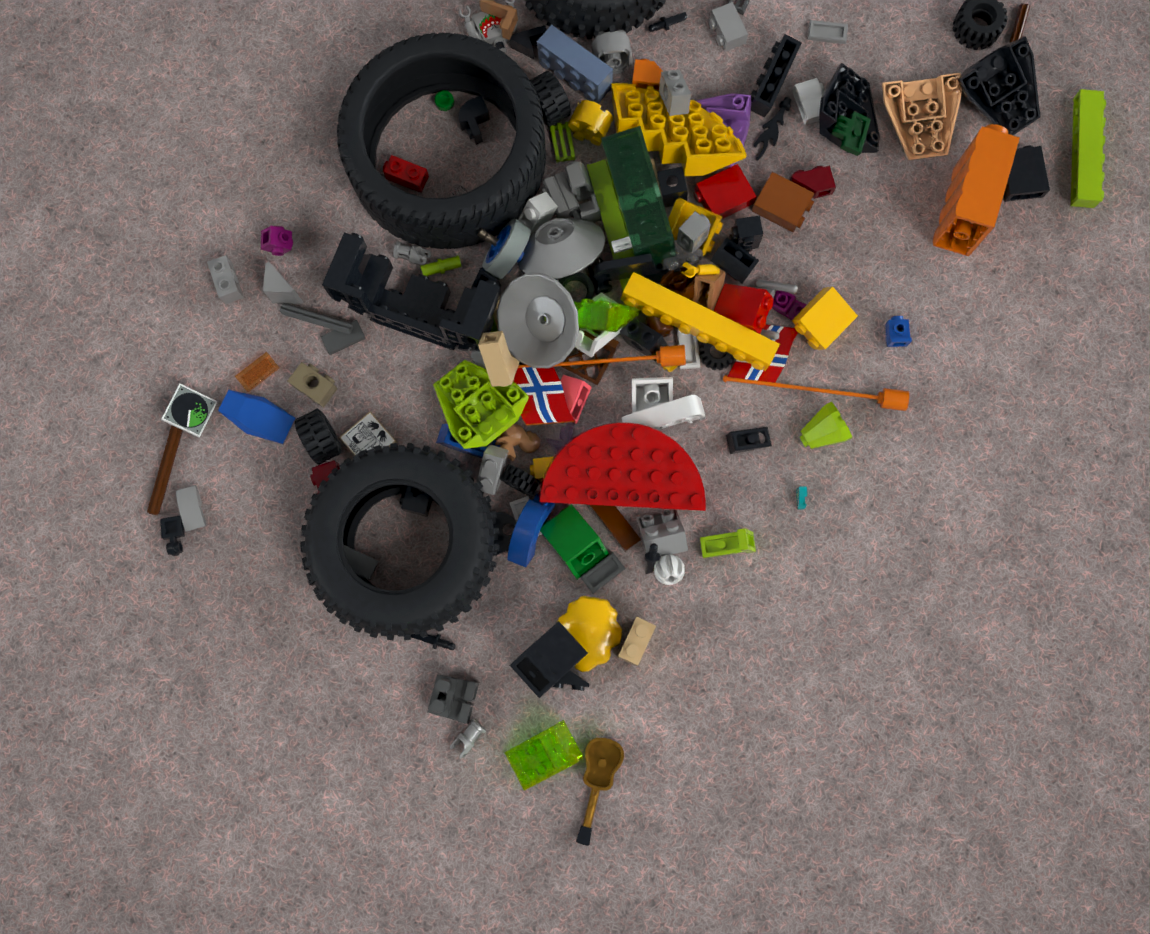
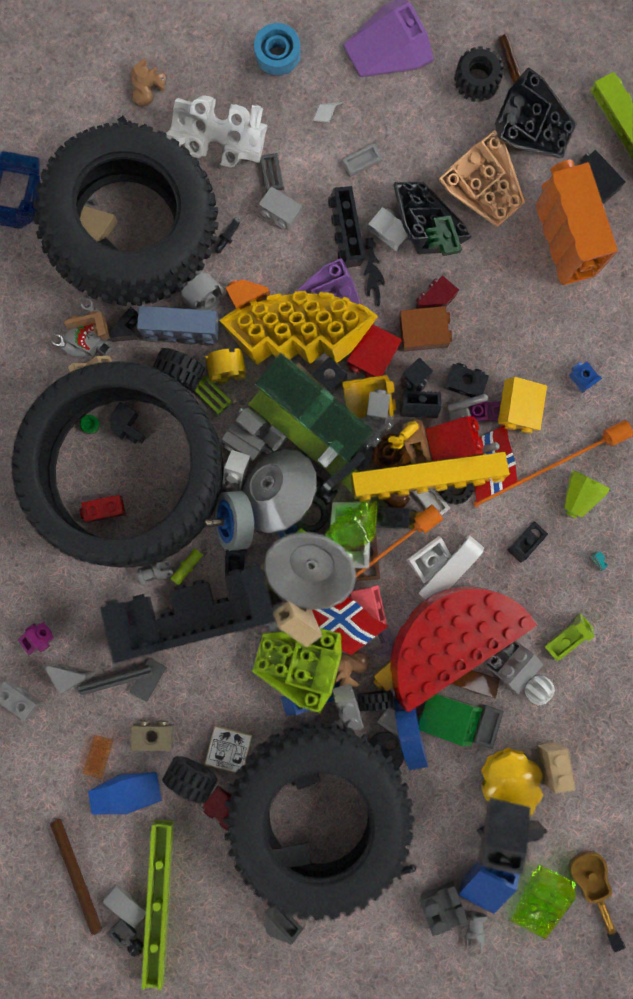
camera: 40 degrees left, 5 degrees up
(189, 410) = (66, 829): tile -> none
(217, 525) = (157, 904): none -> lime tile
(307, 614) = (281, 926): none -> dark grey slope
(506, 701) = (488, 887): none -> blue brick
(651, 558) = (521, 691): black piece -> none
(674, 92) = (279, 297): light grey brick -> none
(788, 257) = (455, 383): none -> black brick

